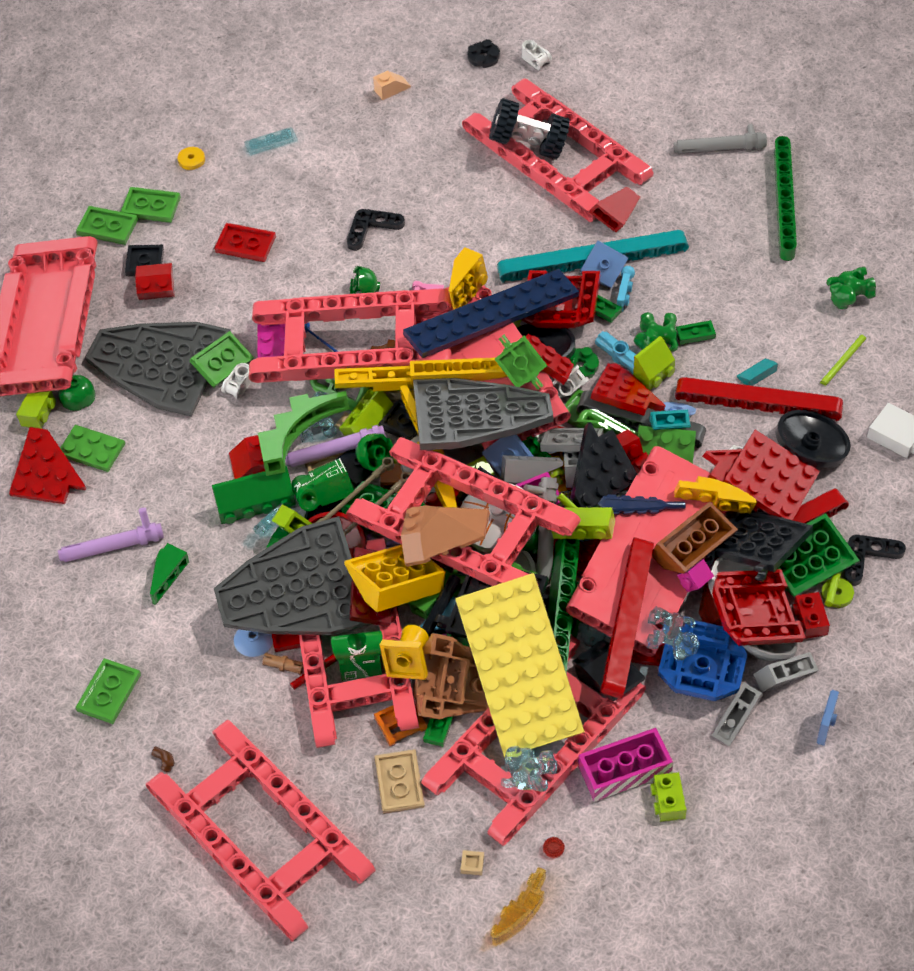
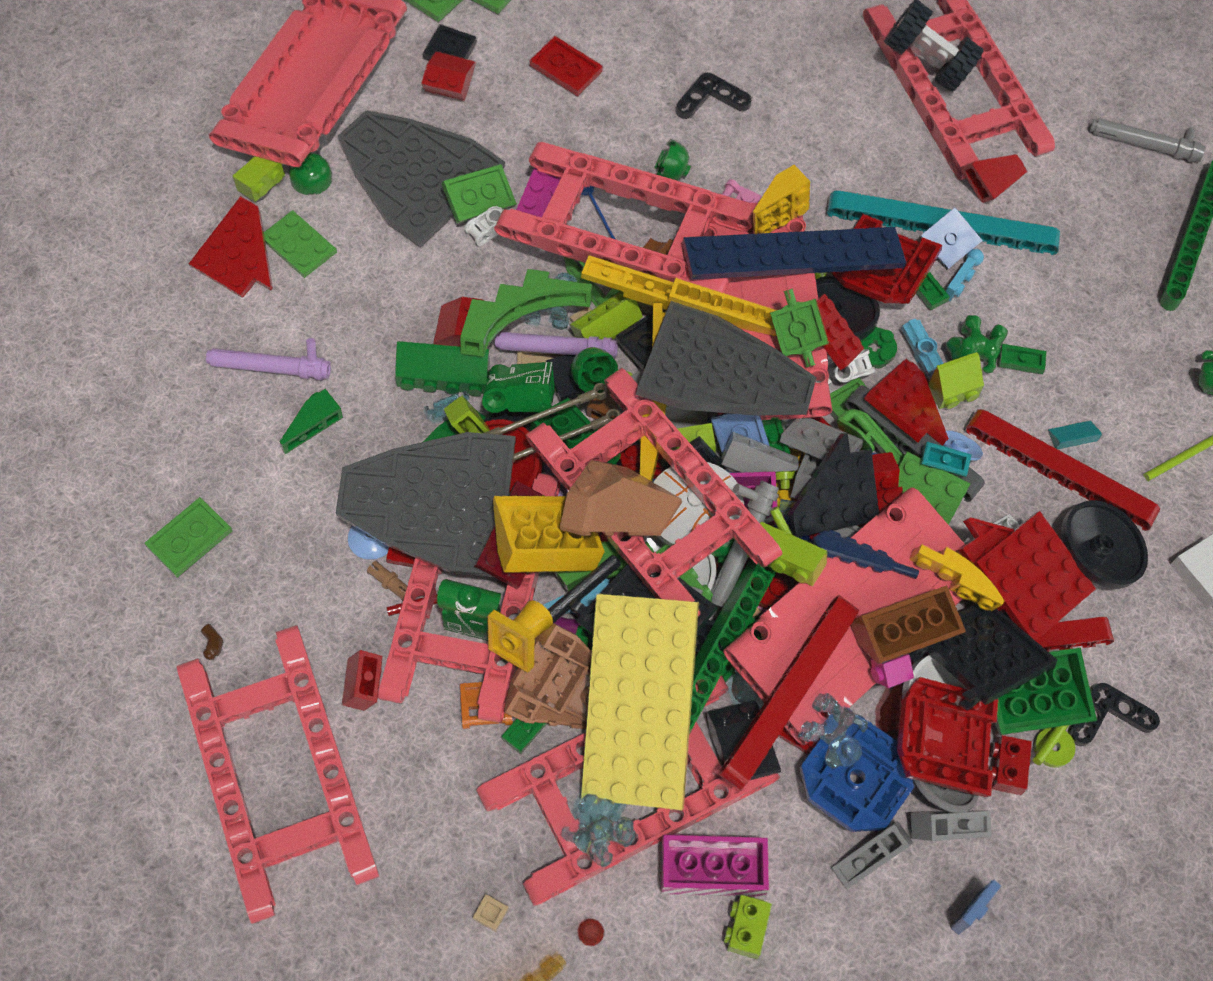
camera: 15 degrees right, 10 degrees up
(297, 738) = (362, 680): none -> red brick
(399, 781) = (454, 776): tan tile -> none

